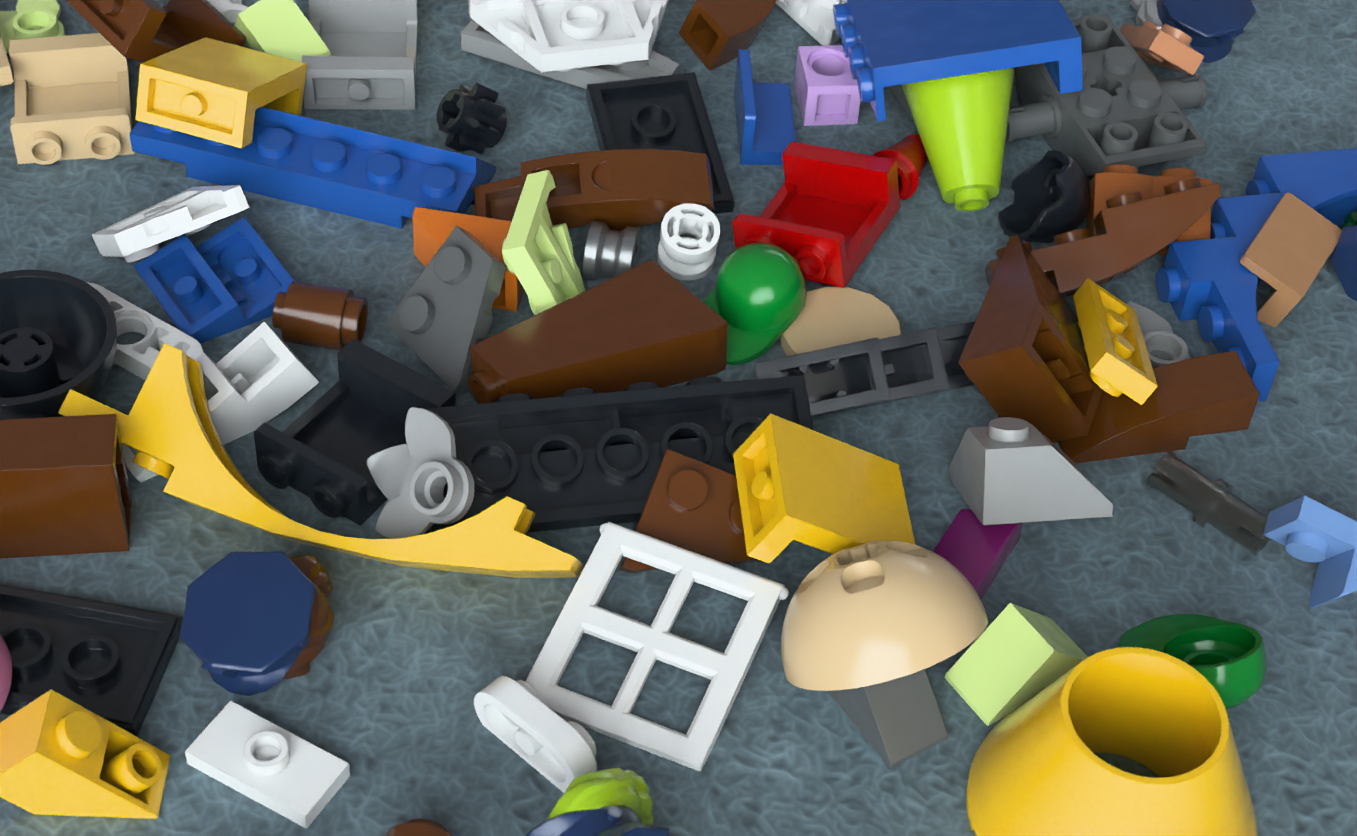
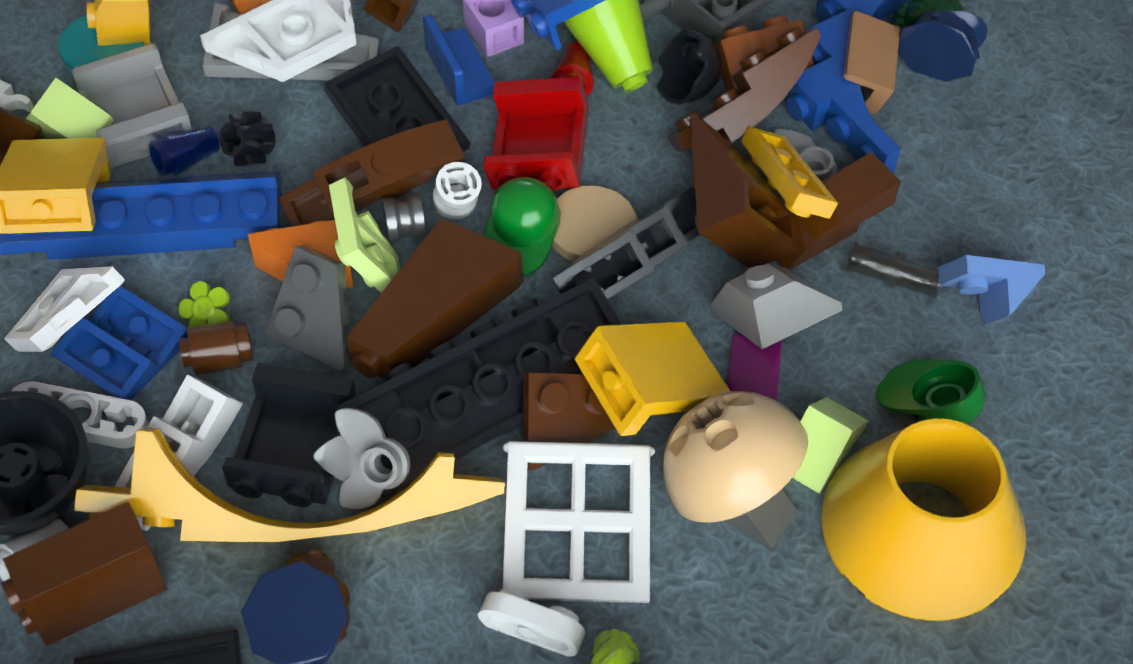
camera: 20 degrees left, 10 degrees up
(334, 269) = (205, 305): none -> lime plant
(394, 110) = (182, 149): none -> clear blue cone

